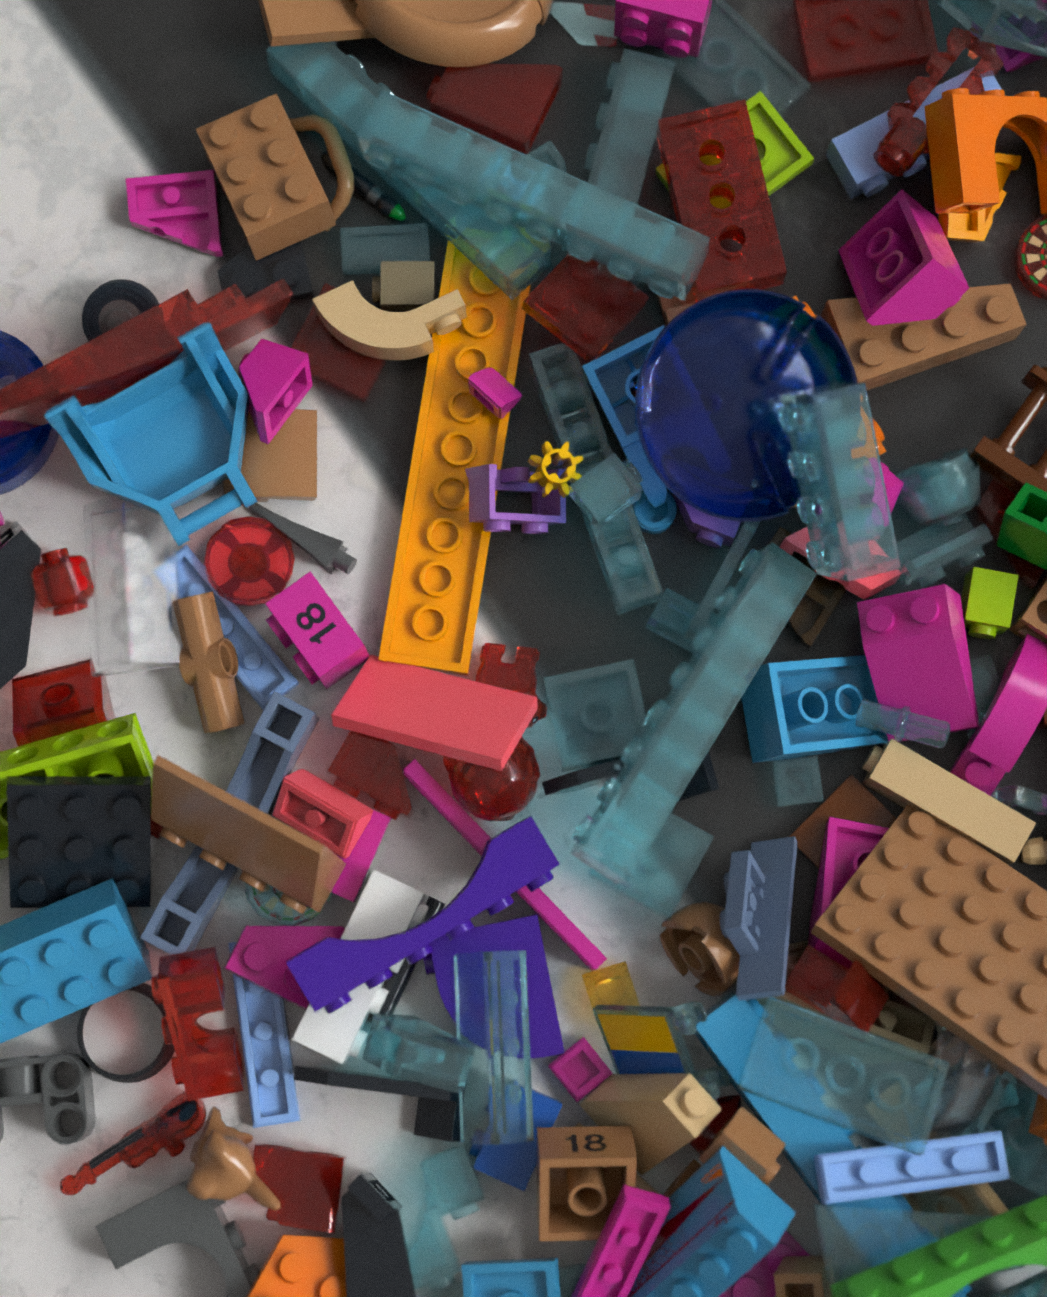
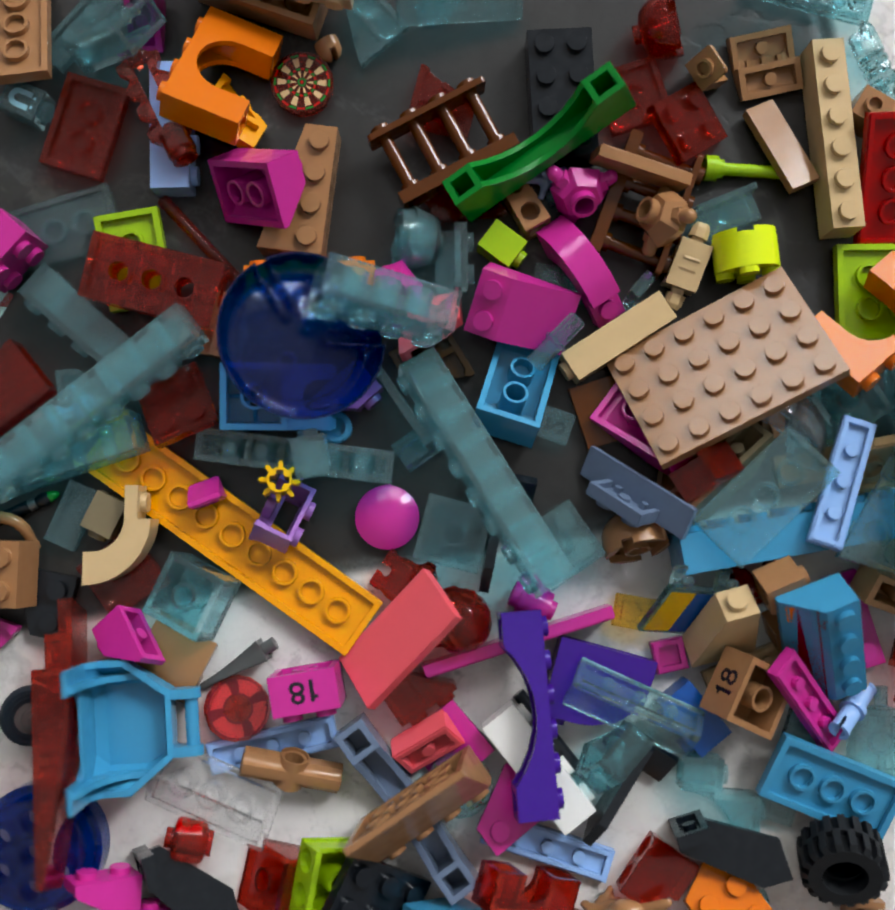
camera: 65 degrees left, 5 degrees up
(361, 437) = (191, 596): none -> clear light blue brick
(571, 870) = (521, 600): none -> dark pink brick
(574, 627) = (387, 517): none -> dark pink dish
(804, 220) = (195, 234): none -> clear red bar

